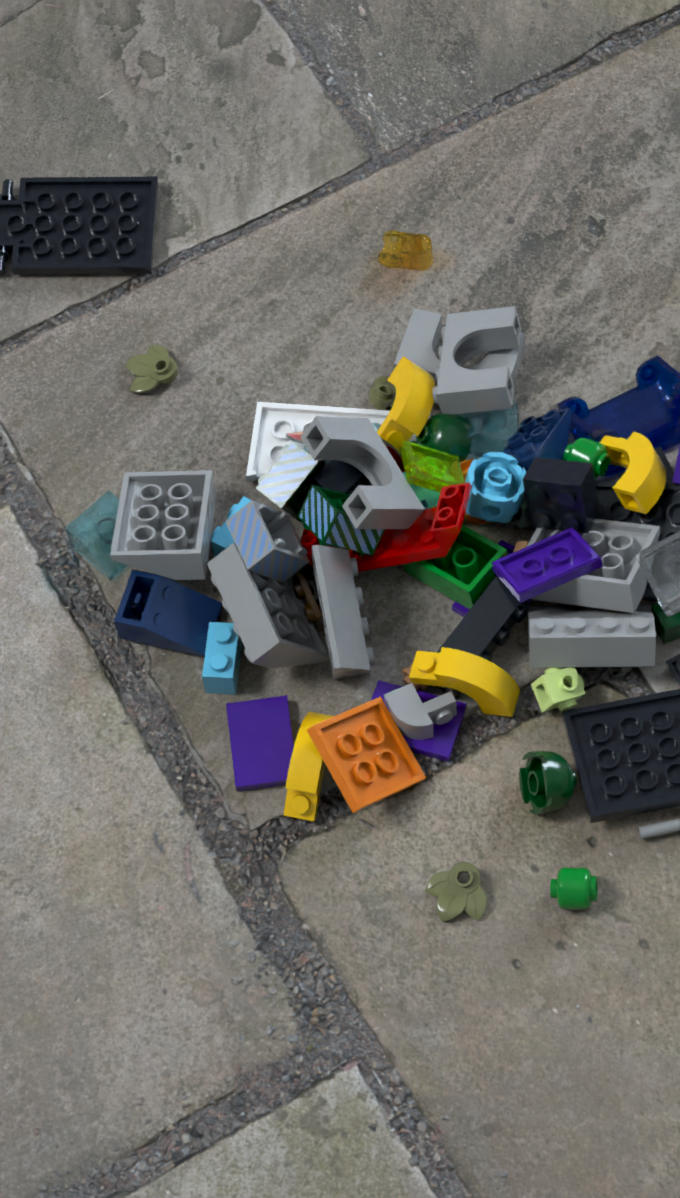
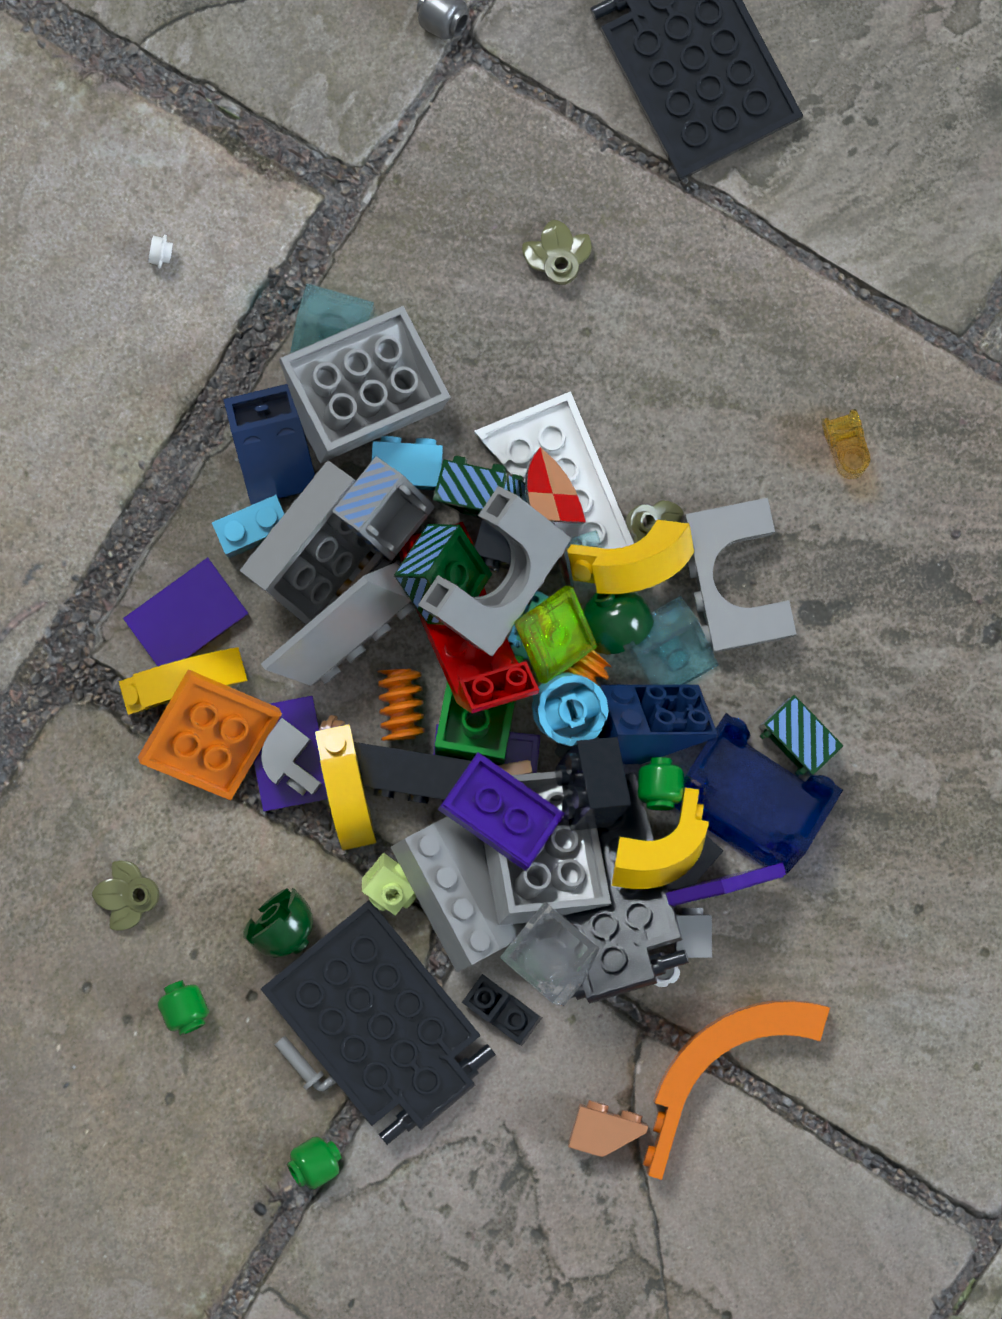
camera: 55 degrees right, 25 degrees up
(421, 618) = (400, 704): none -> orange piece
(463, 337) = (748, 574): light grey arch -> none
(602, 362) = (800, 736): none -> dark green container

